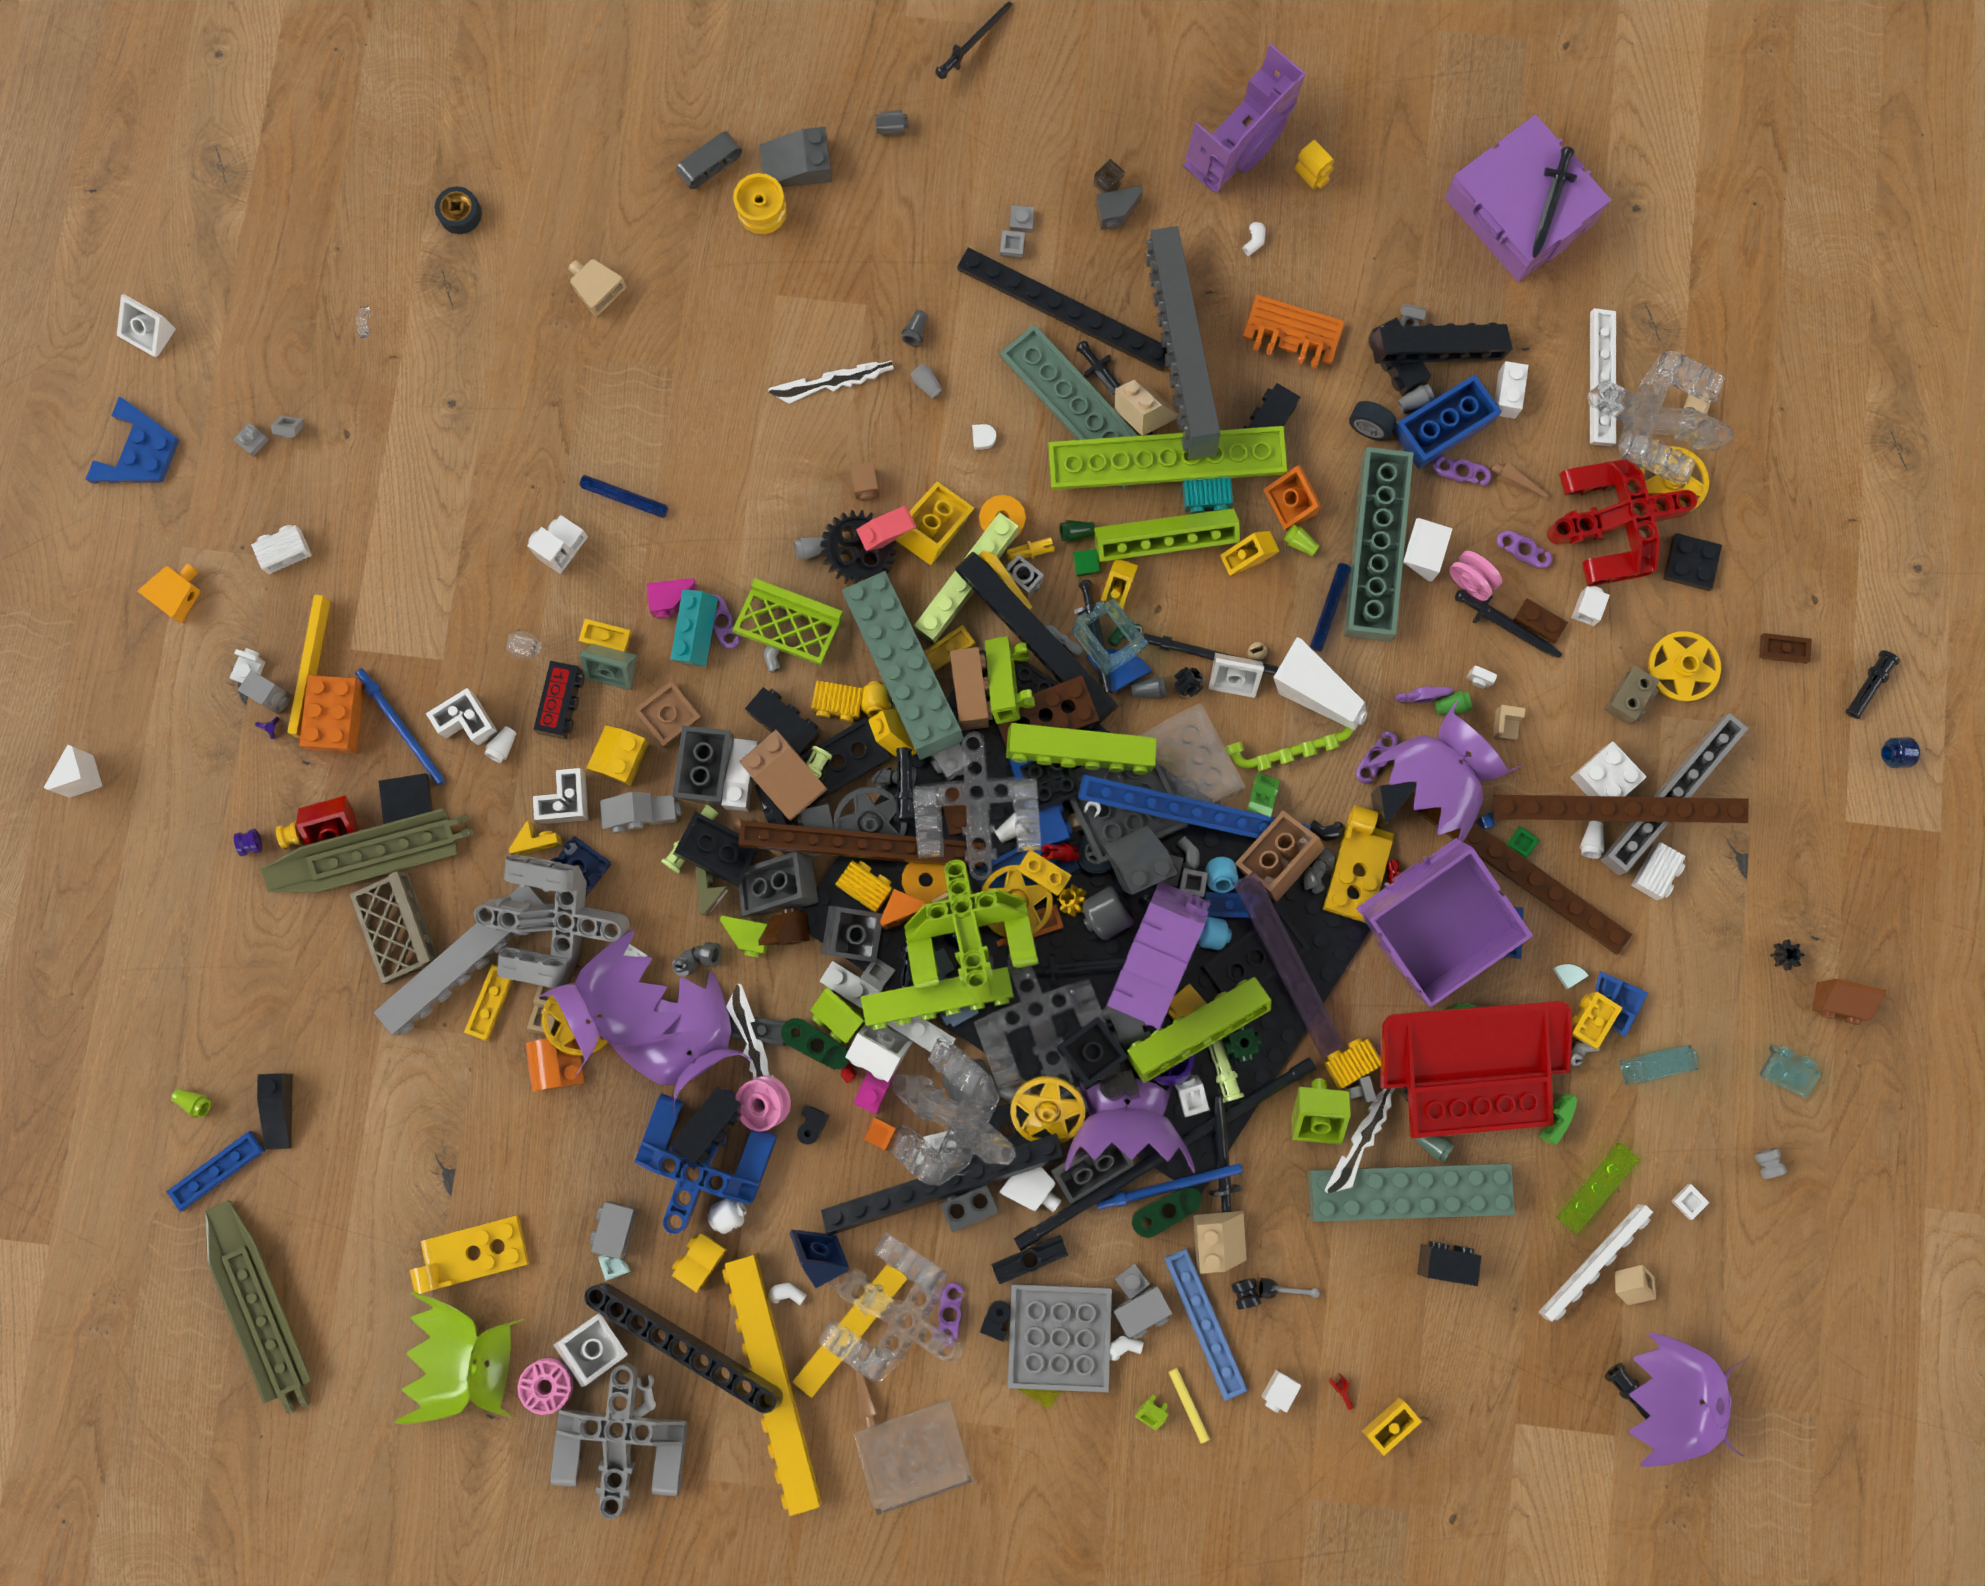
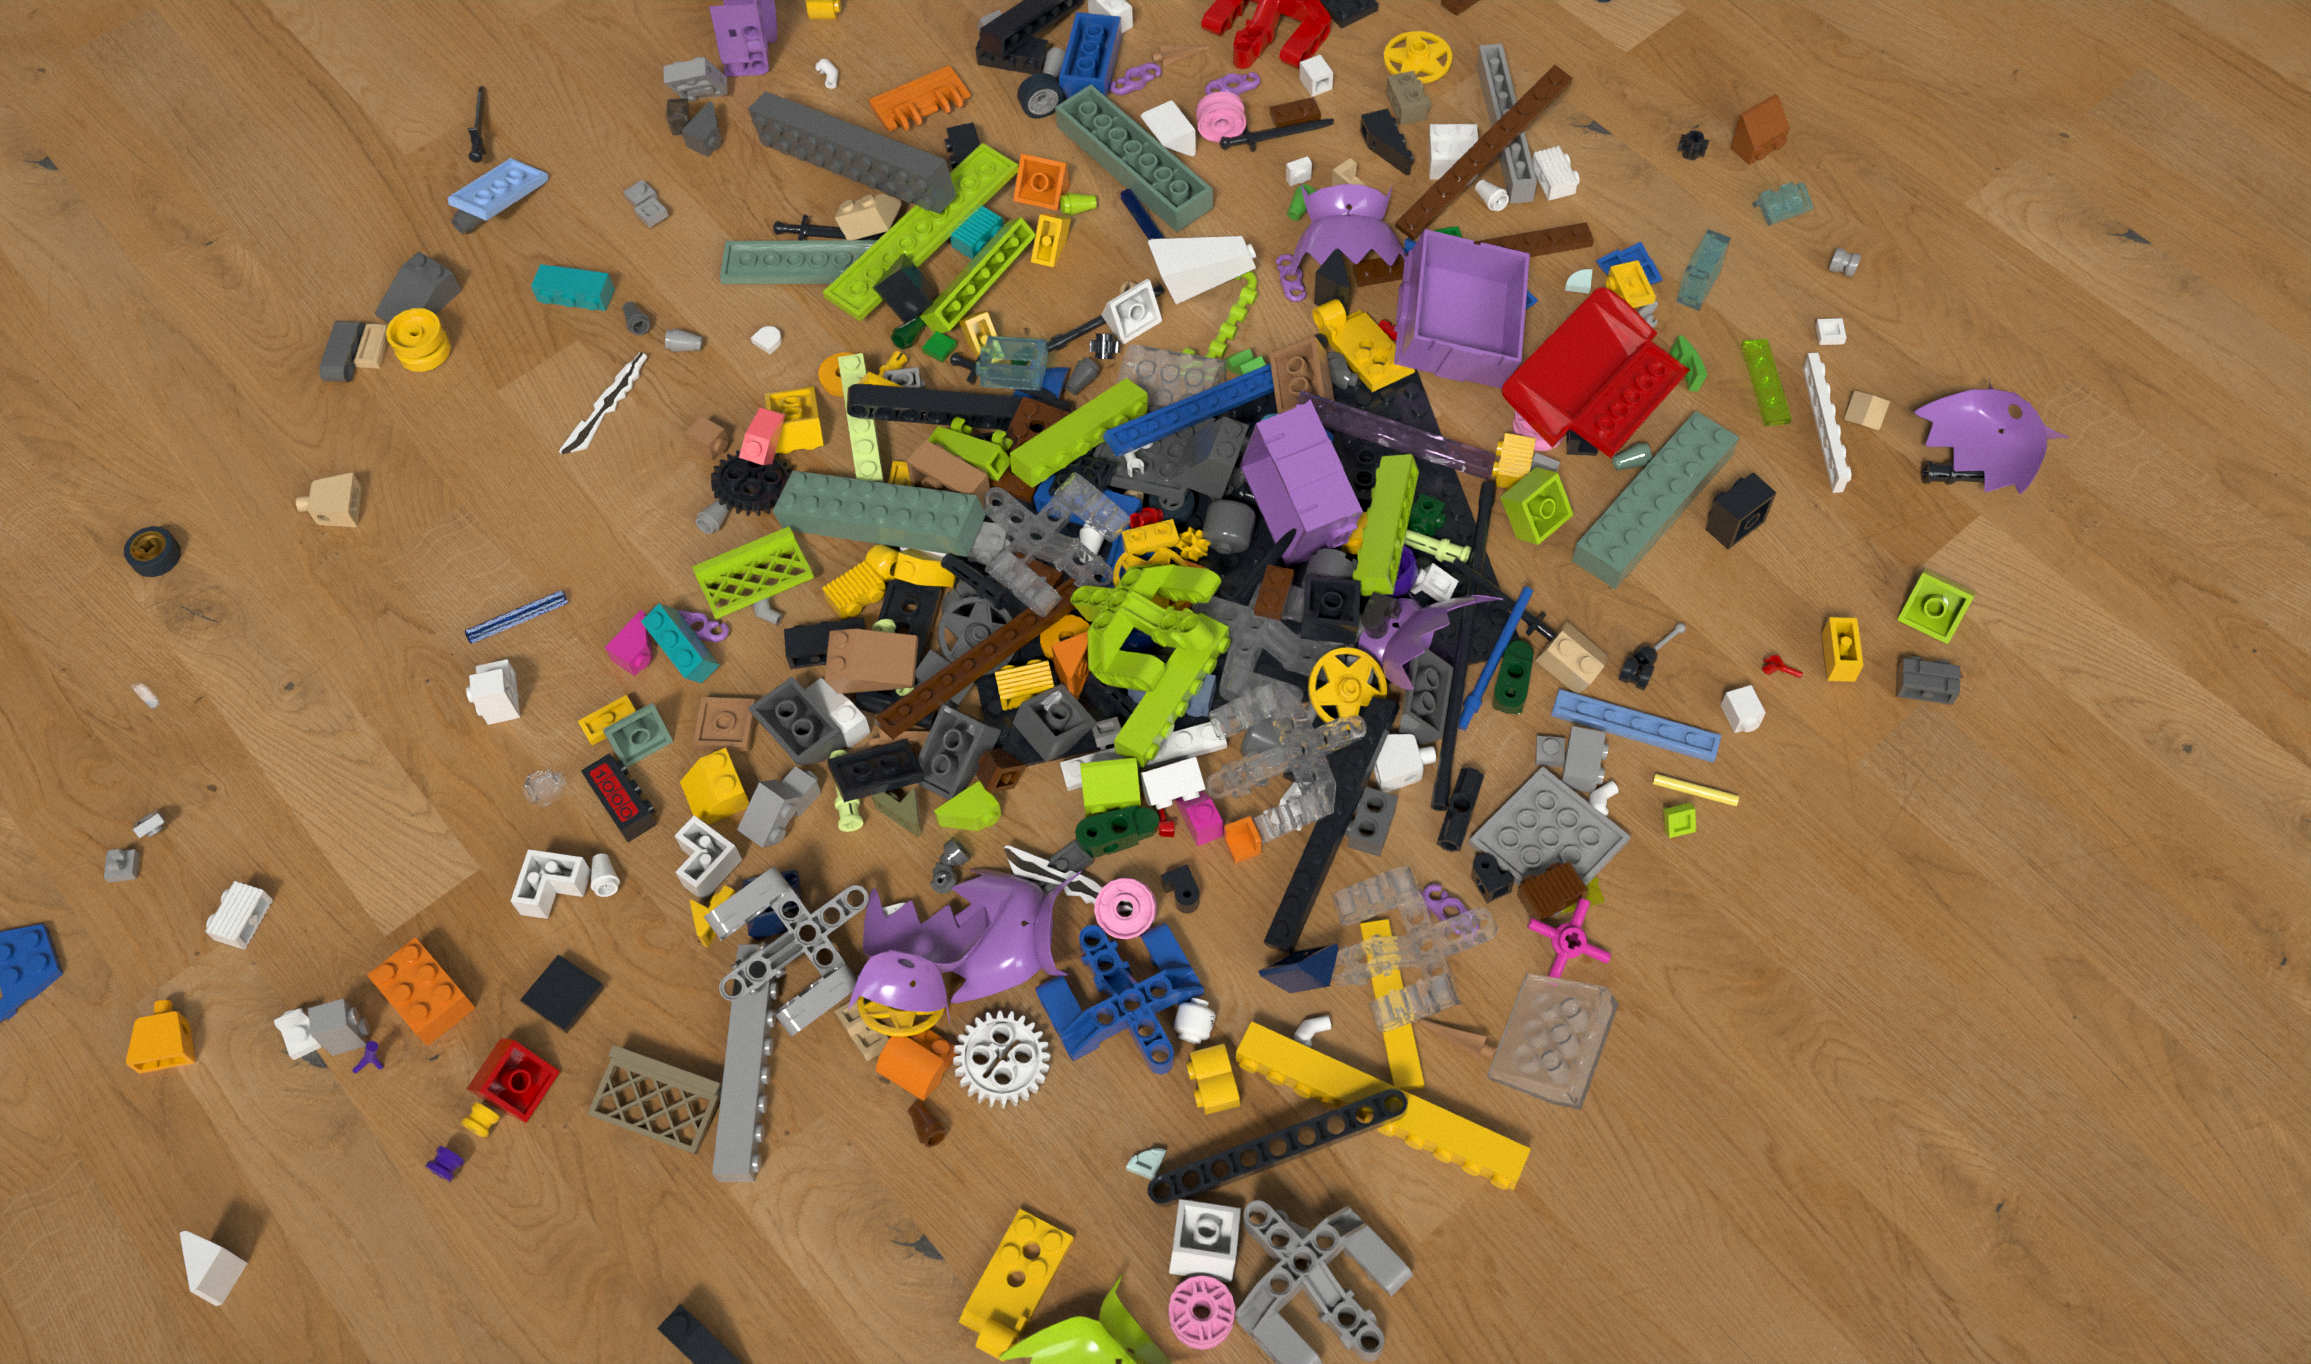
camera: 45 degrees left, 20 degrees down
(309, 660) = (360, 978): yellow tile -> none
(366, 853) = (565, 1068): olive hinge -> none
(374, 691) = (441, 943): blue bar -> none
(488, 1005) = (809, 1074): yellow tile -> none
(518, 1108) = (928, 1127): none -> reddish brown cone
(599, 1138) = (1021, 1075): none -> white gear
(613, 1229) = (1115, 1130): light grey brick -> none
(706, 1128) = (1105, 955): black brick -> none
(732, 172) = (371, 346): none -> tan tile
(898, 259) = (572, 287): none -> teal brick
(929, 119) = (498, 189): none -> light blue tile
(992, 1412) = (1575, 934): none -> dark pink bar
(1015, 1375) = (1551, 890): none -> reddish brown brick
(1063, 308) = (736, 219): black plate -> none
(1067, 1003) = (1274, 592): none -> reddish brown plate
(1106, 497) = (905, 289): none -> black slope
(1149, 157) = (695, 79): none -> light grey piece
(1346, 1170) = (1597, 516): white sword -> none
(1421, 1505) = (1928, 680): none -> dark grey brick
(1424, 694) = (1274, 214): medium lavender piece -> none
(1495, 1465) = (1936, 606): none -> lime slope
(1573, 713) = (1383, 138): none -> black slope

